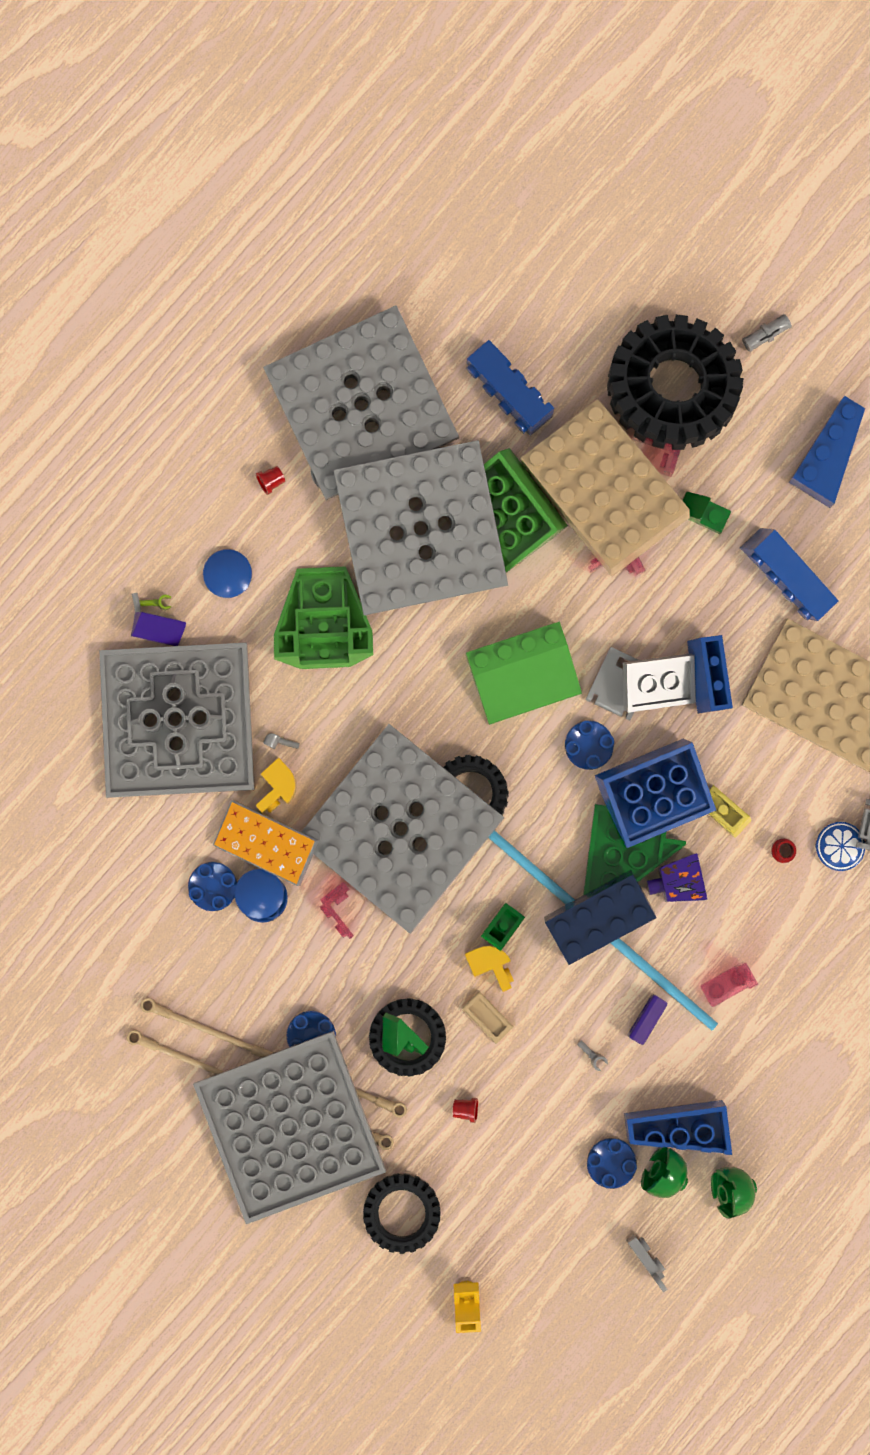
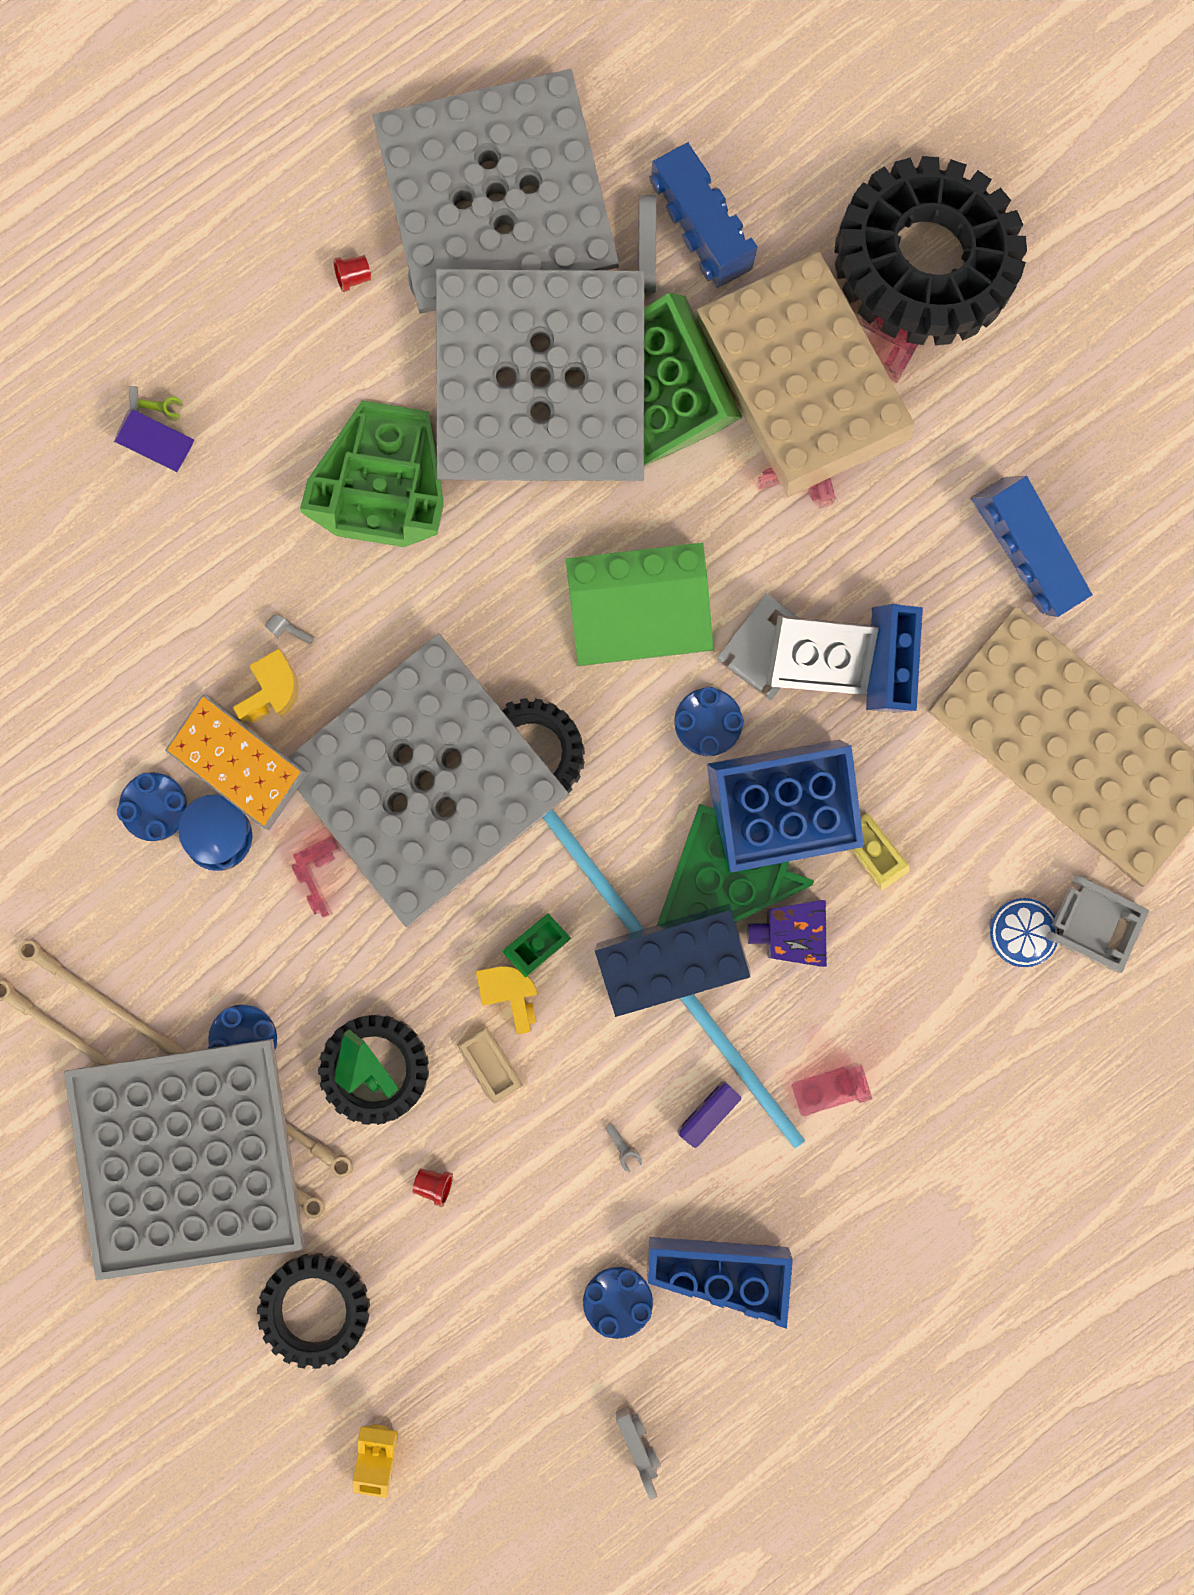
camera: 10 degrees right, 0 degrees up
(213, 754) = (191, 625): light grey plate -> none
(227, 573) = (266, 387): blue dish -> none
(474, 414) = (647, 241): none -> light grey beam
(666, 1175) = (689, 1336): green cylinder -> none
(706, 512) = (935, 440): green slope -> none
(734, 1190) = (779, 1378): green cylinder -> none
(766, 333) = (1068, 214): light grey pin -> none
(775, 850) = (933, 922): red piece -> none
(828, 457) = (1115, 401): blue wedge -> none

